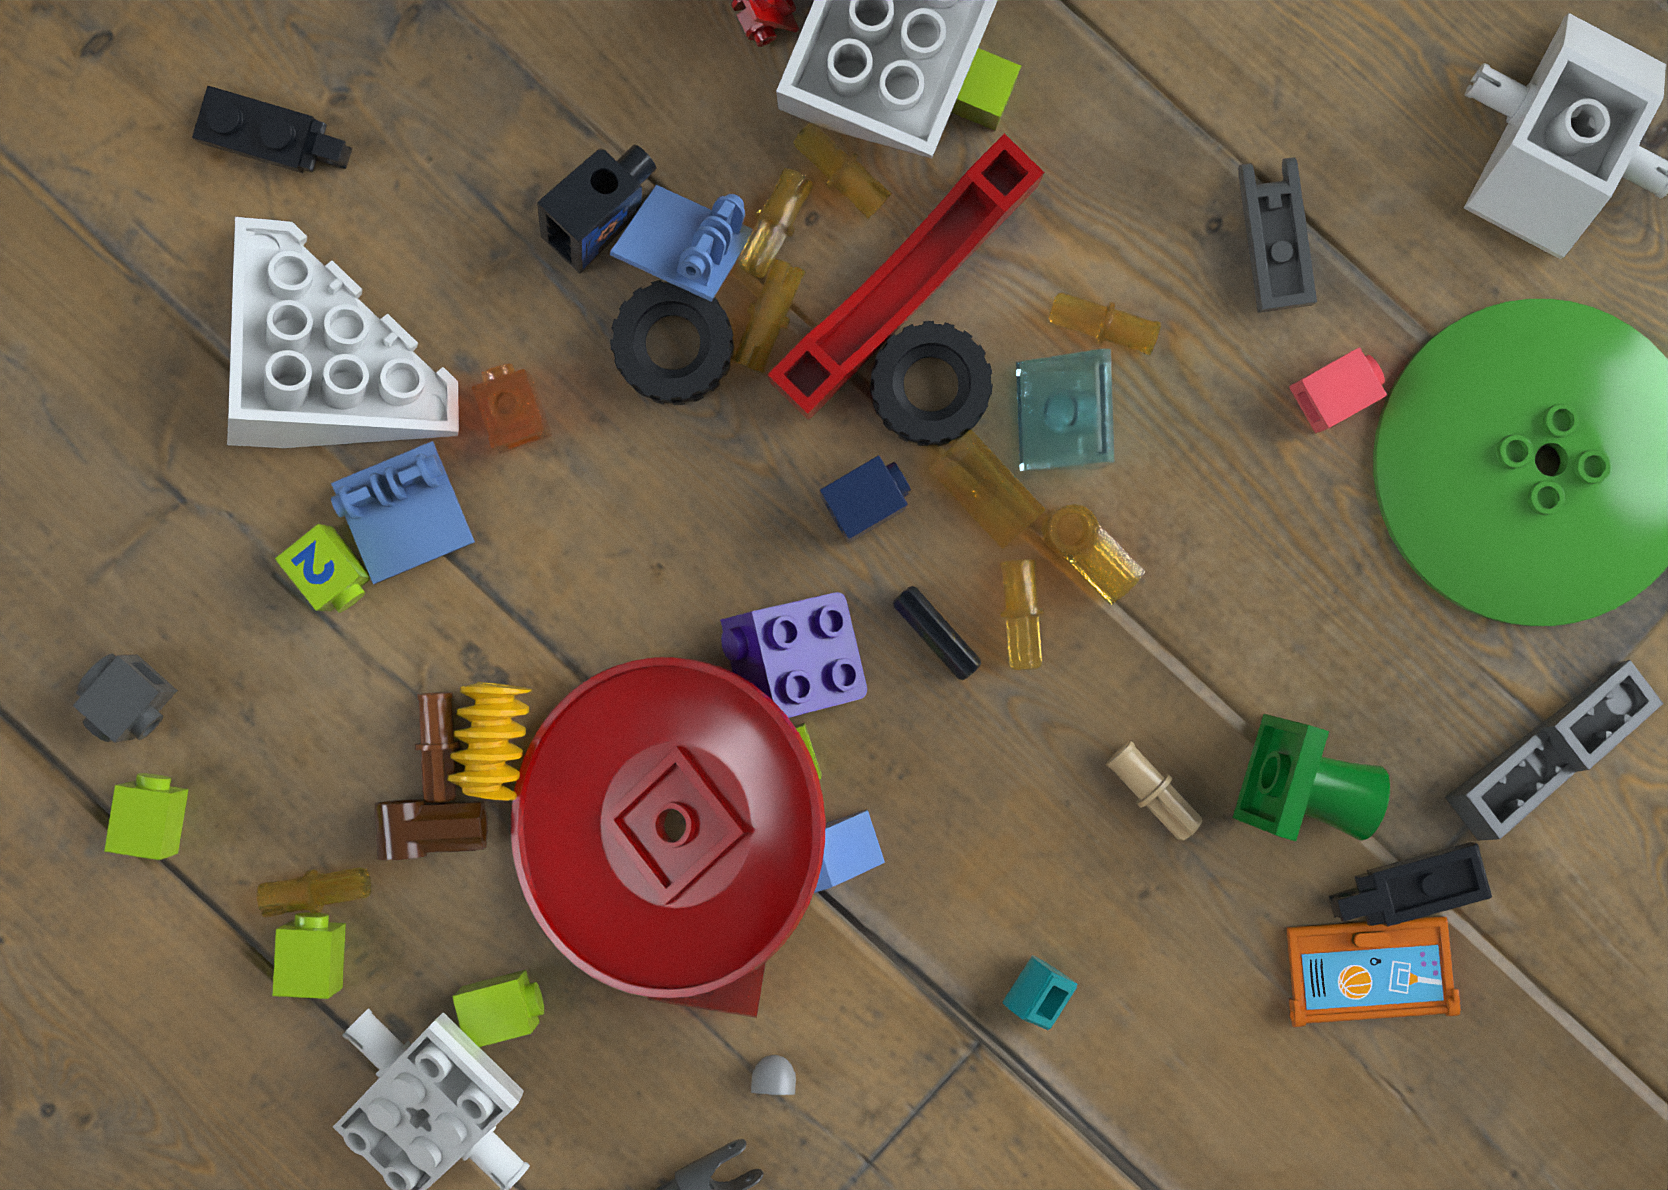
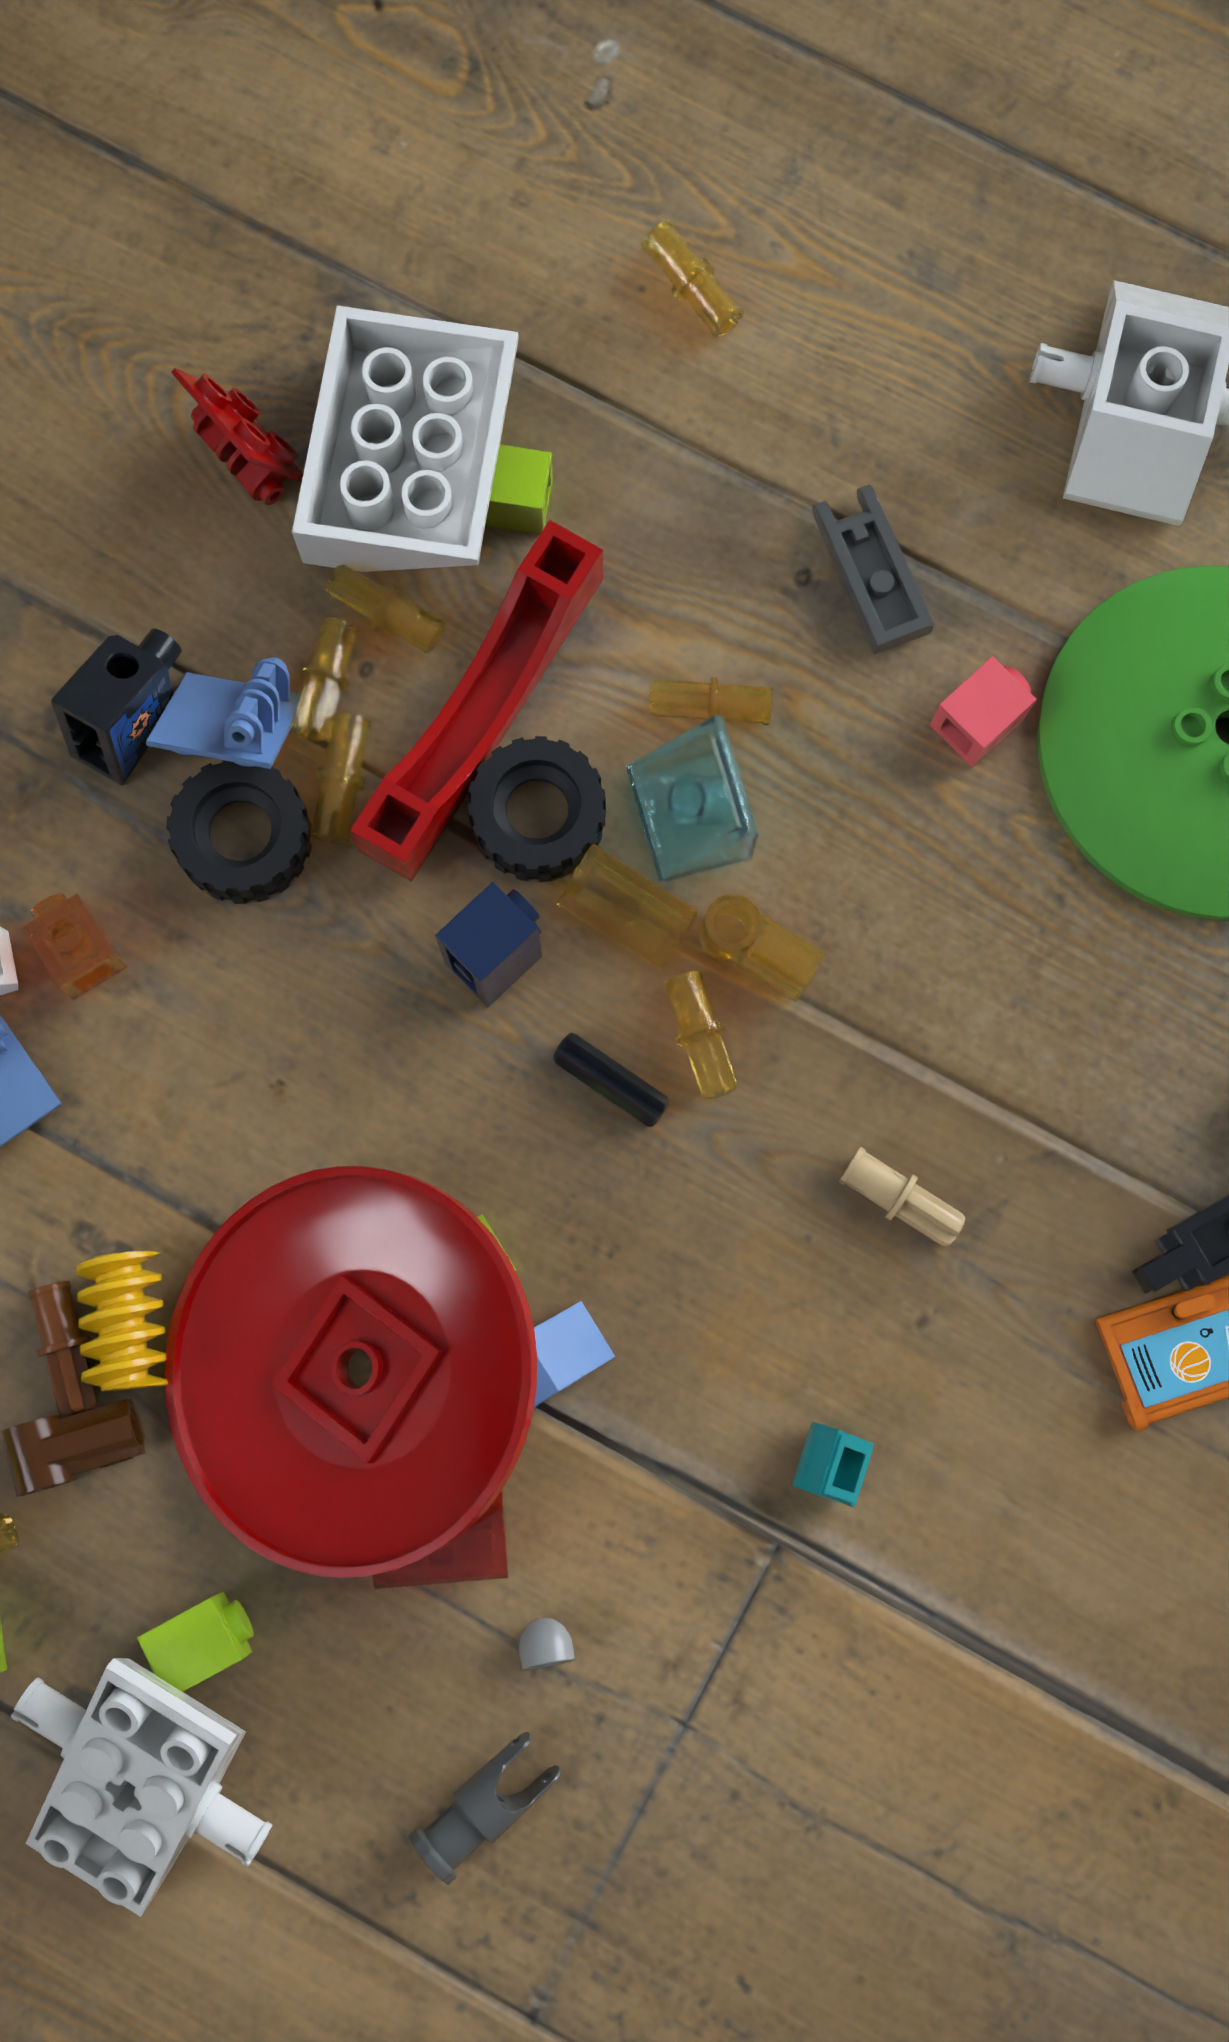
camera: 20 degrees left, 10 degrees down
(798, 653) = (458, 1135): bracket -> none
(1293, 781) = (1053, 1142): green plant -> none

